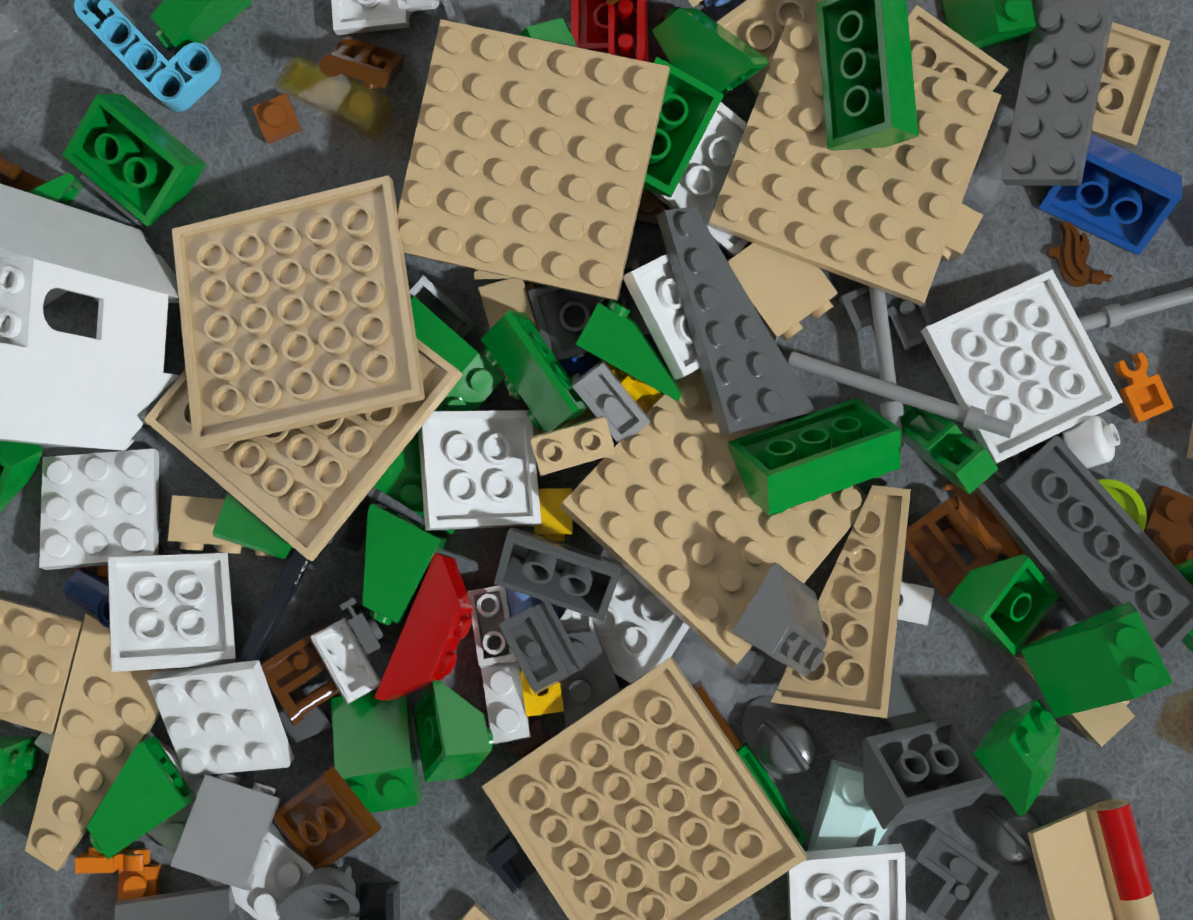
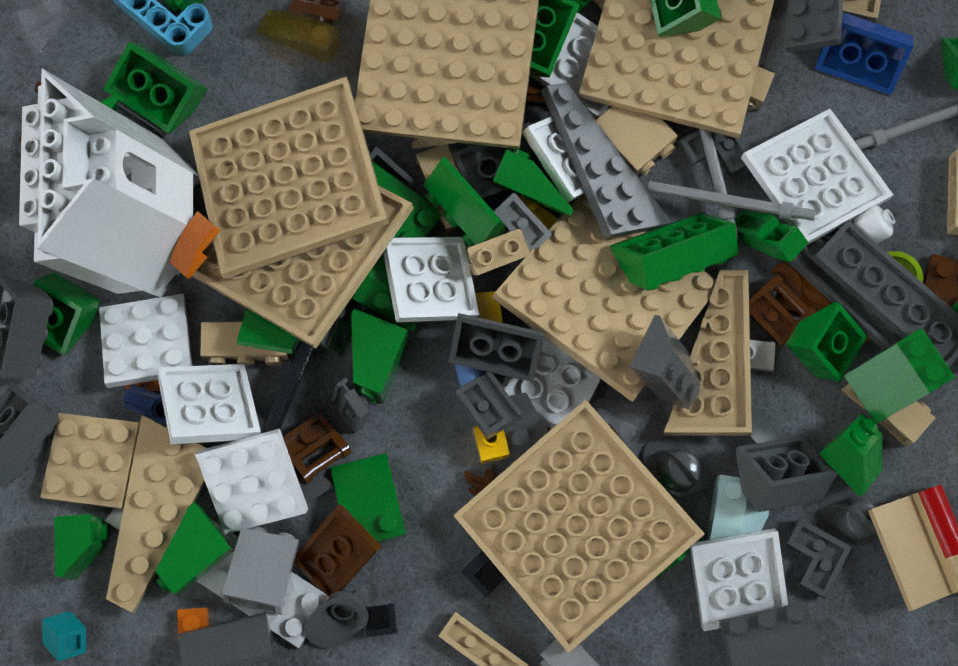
camera: 10 degrees left, 10 degrees down
(94, 862) = (164, 603): orange plate -> none
(160, 394) = (194, 239): none -> orange slope
(277, 118) = (256, 53): dark orange plate -> none
(345, 661) = (341, 433): white plate -> none
(430, 632) = (404, 404): red wedge -> none
(449, 734) = (425, 478): green slope -> none
(498, 666) = (456, 428): white slope -> none
(1073, 258) = (844, 101): reddish brown piece -> none
(1144, 394) = (908, 190): orange plate -> none

